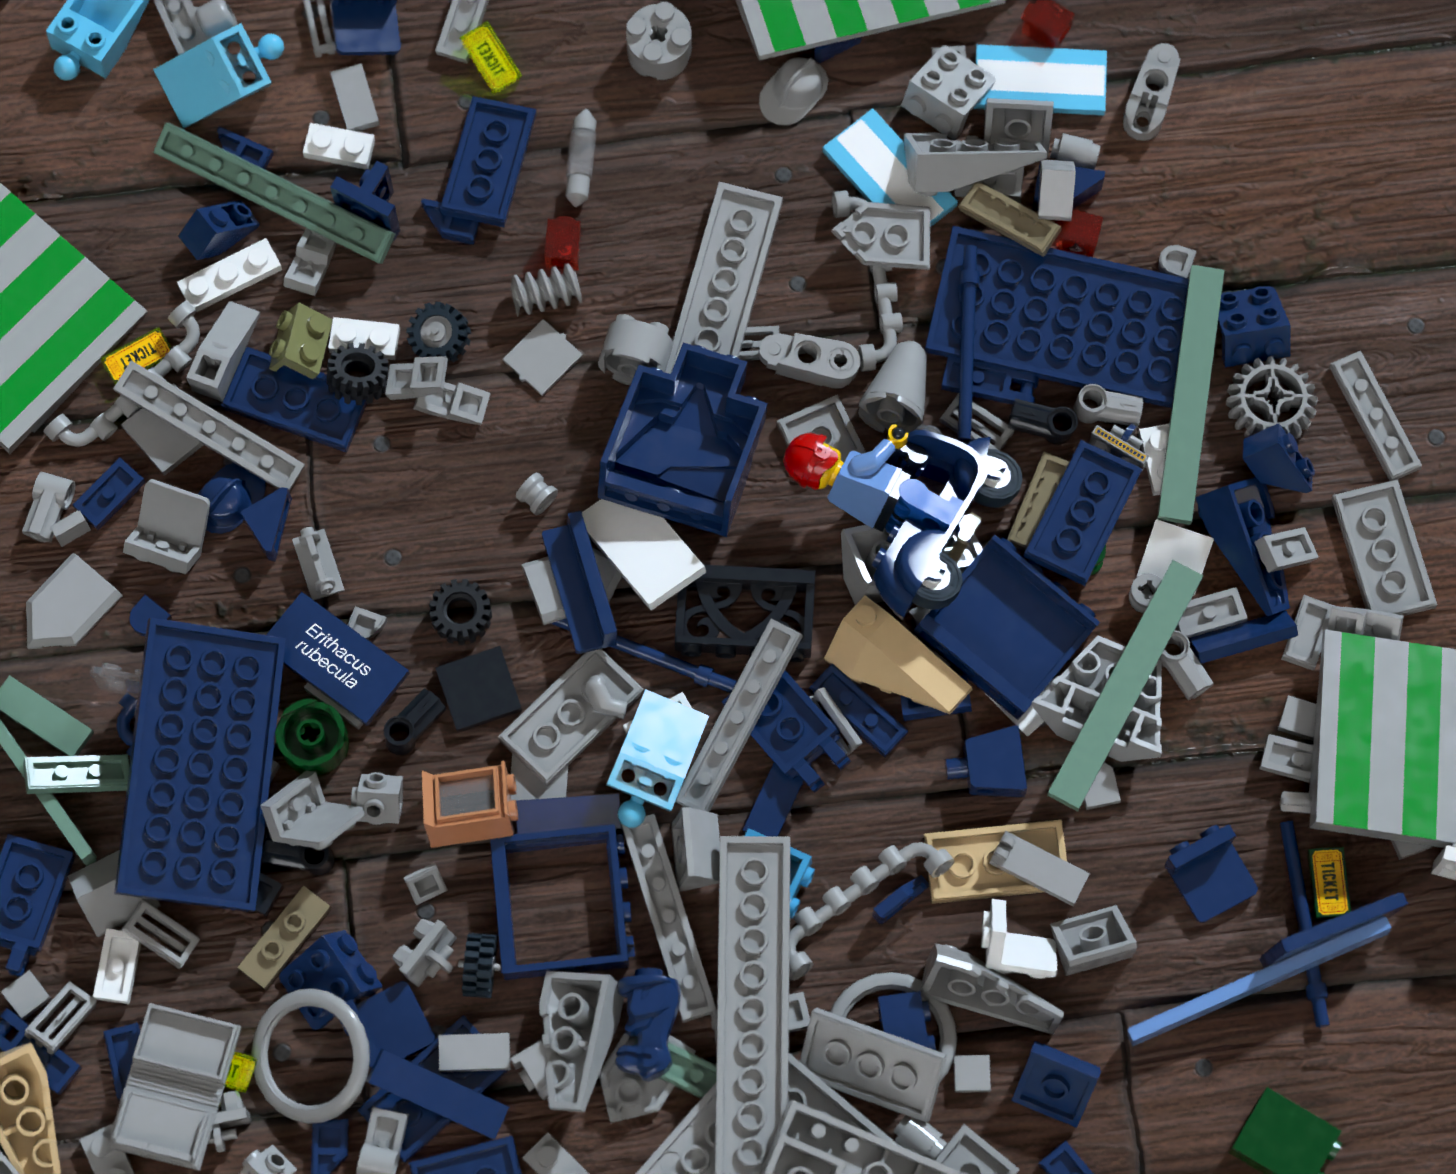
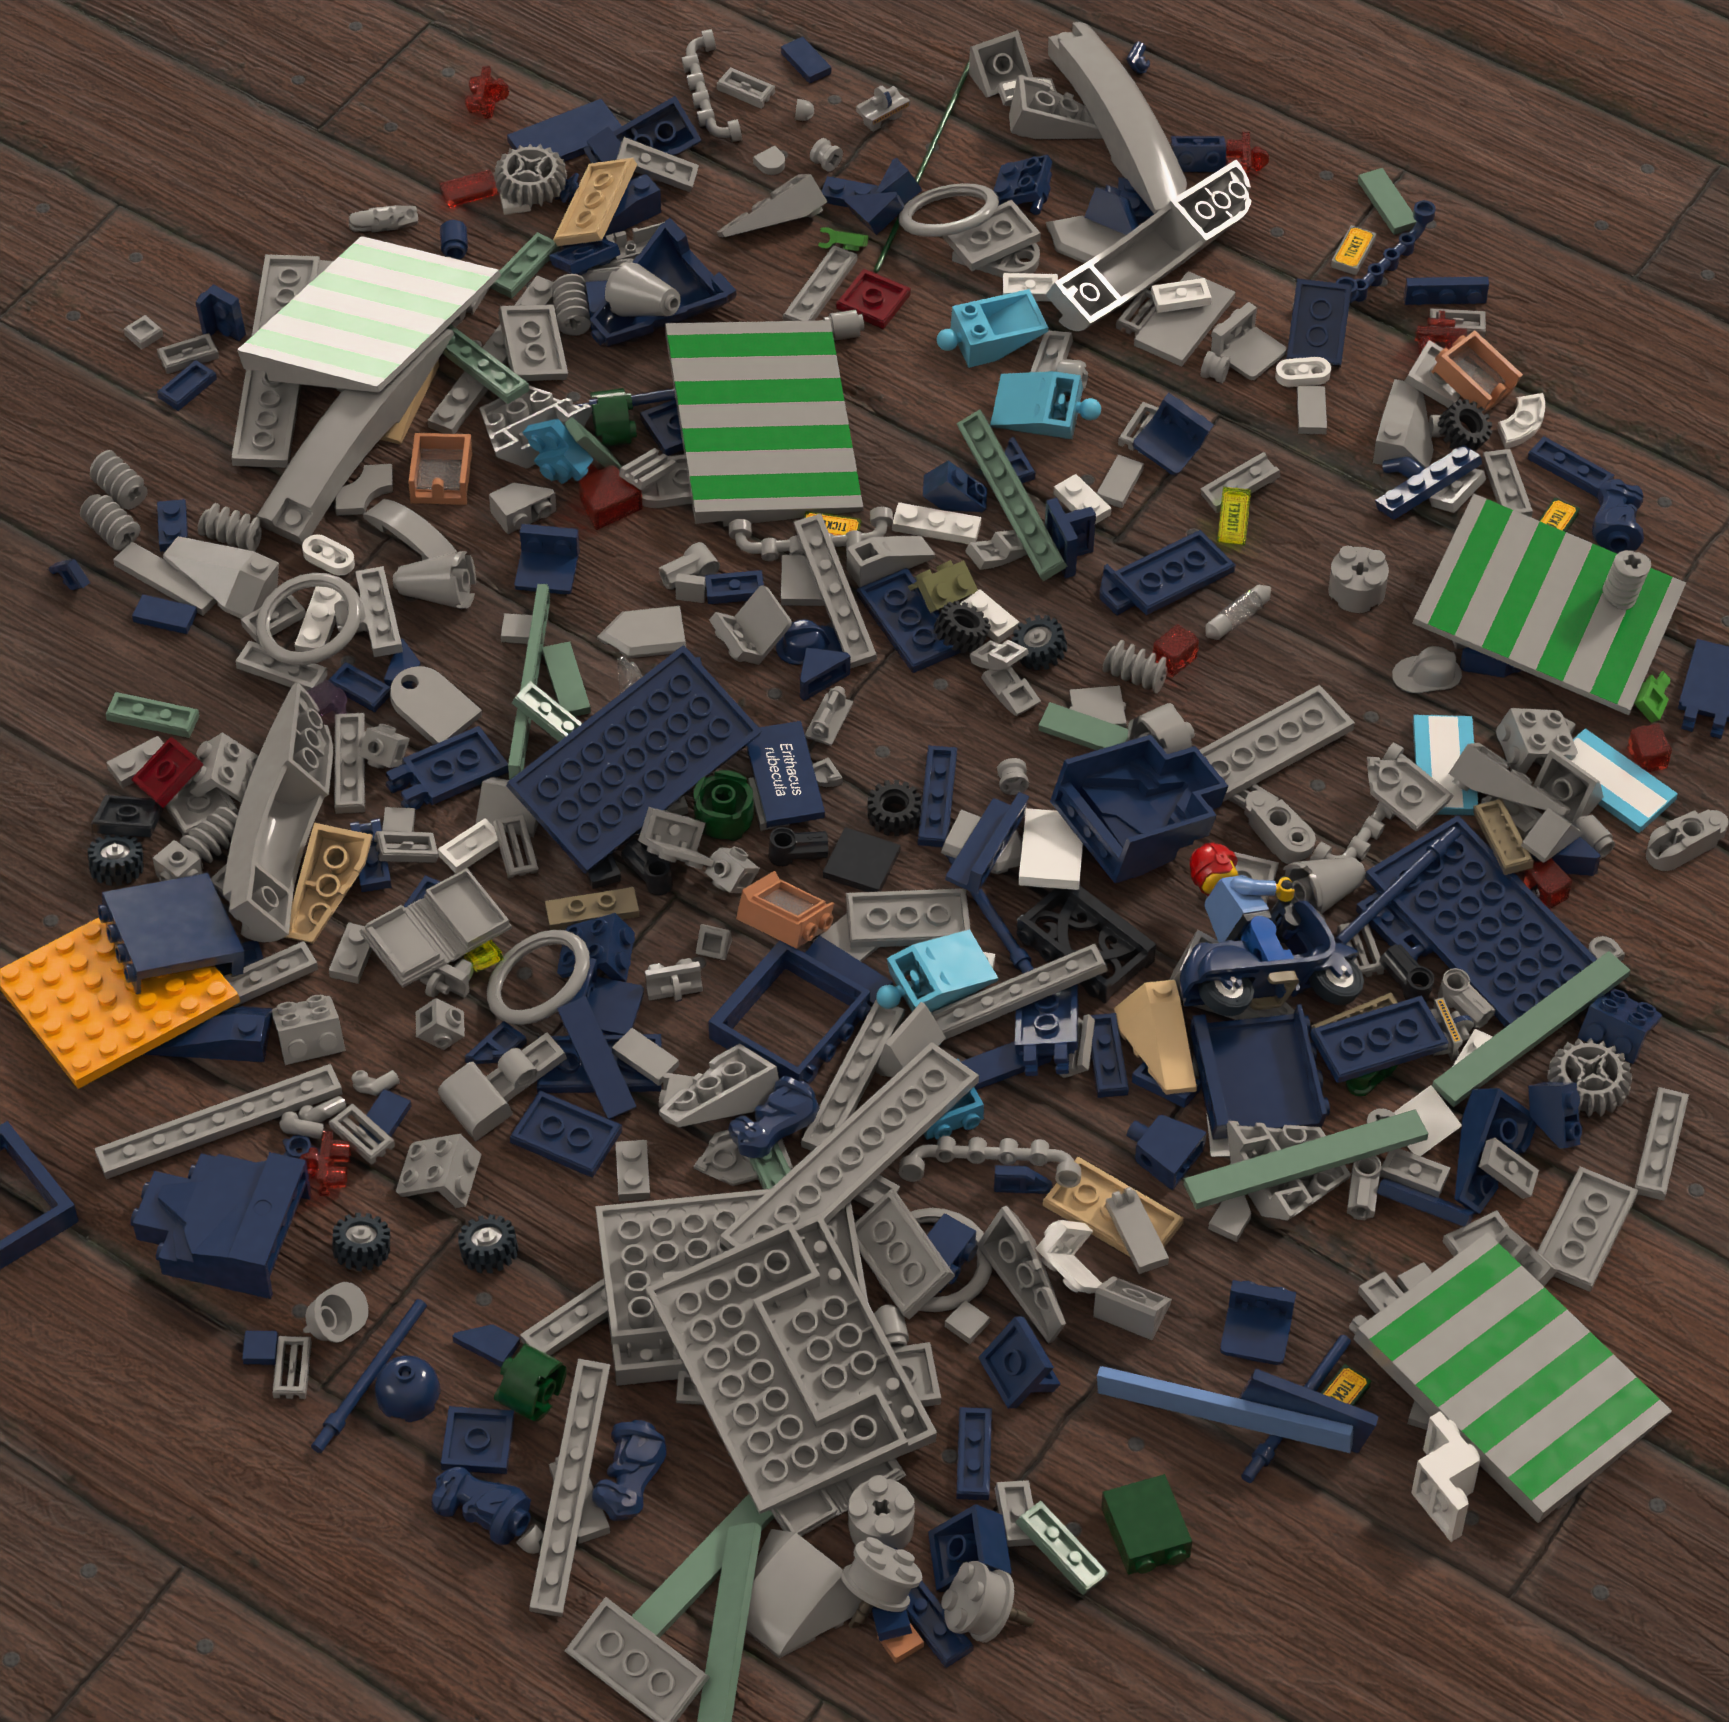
camera: 40 degrees right, 20 degrees down
(479, 965) = (697, 1007): black wheel -> none
(484, 565) = (937, 796): none -> dark blue tile
(554, 392) = (1081, 728): none -> sand green tile
(601, 700) = (934, 916): light grey arm -> none

